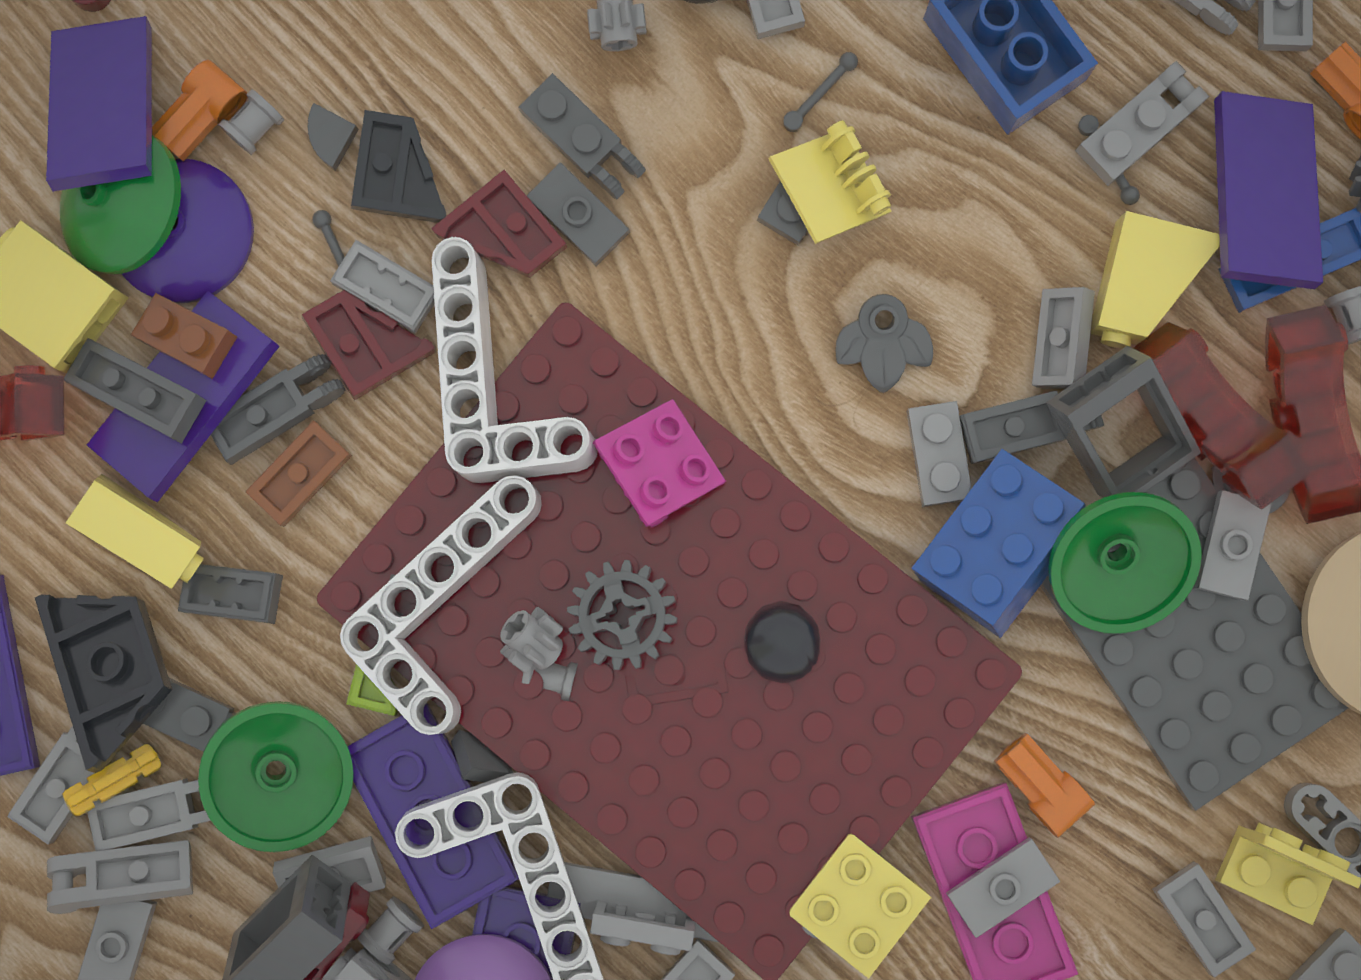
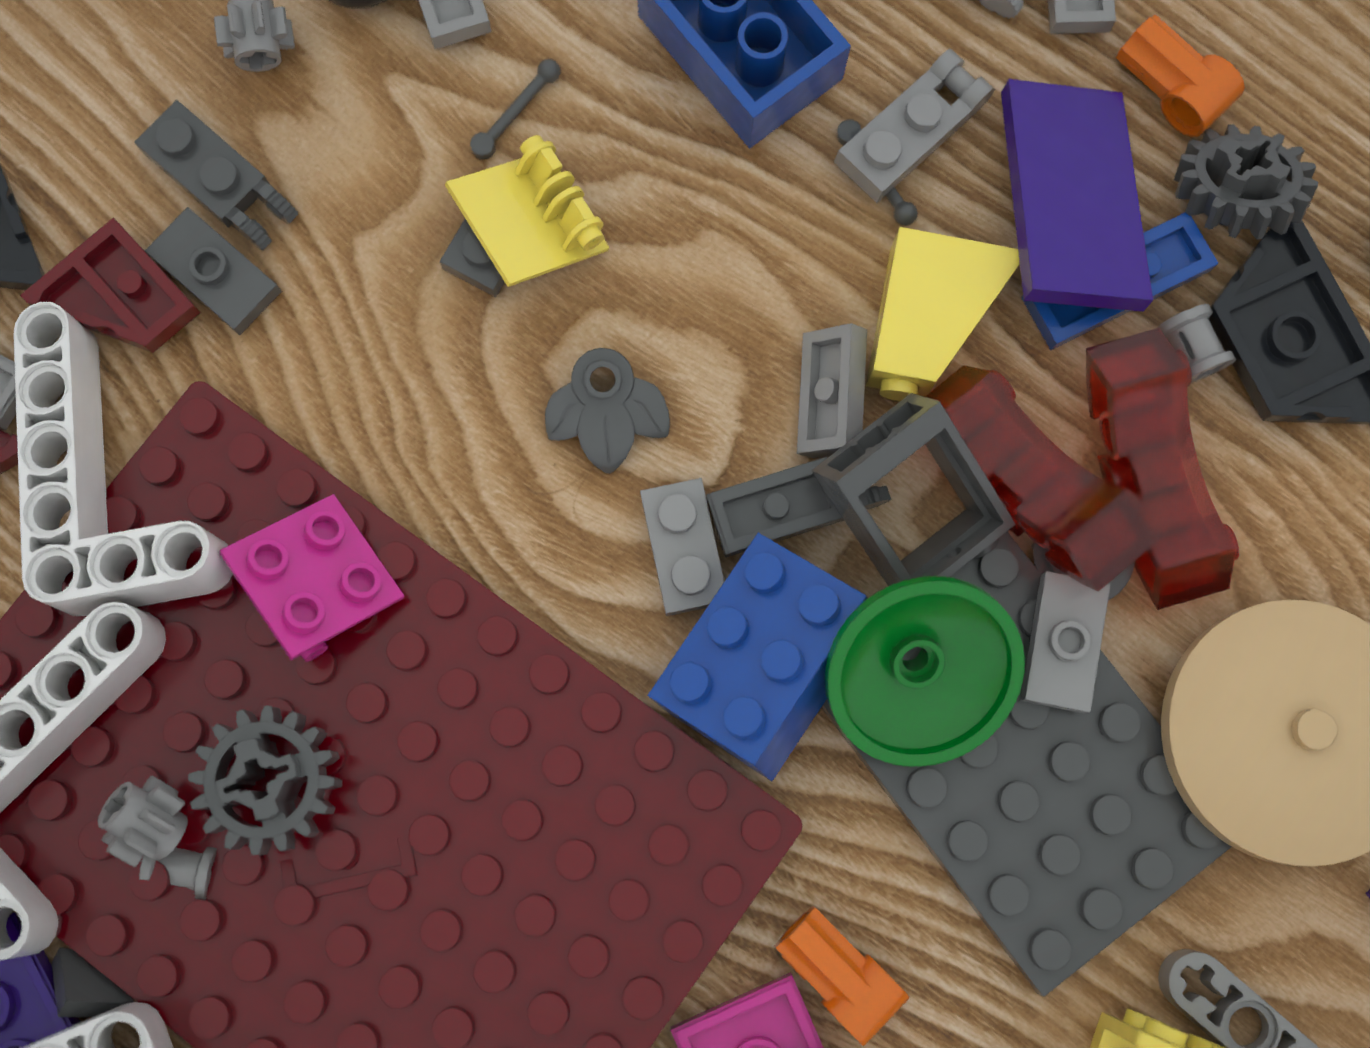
camera: 15 degrees left, 5 degrees down
(782, 642) = (481, 804): black hair -> none

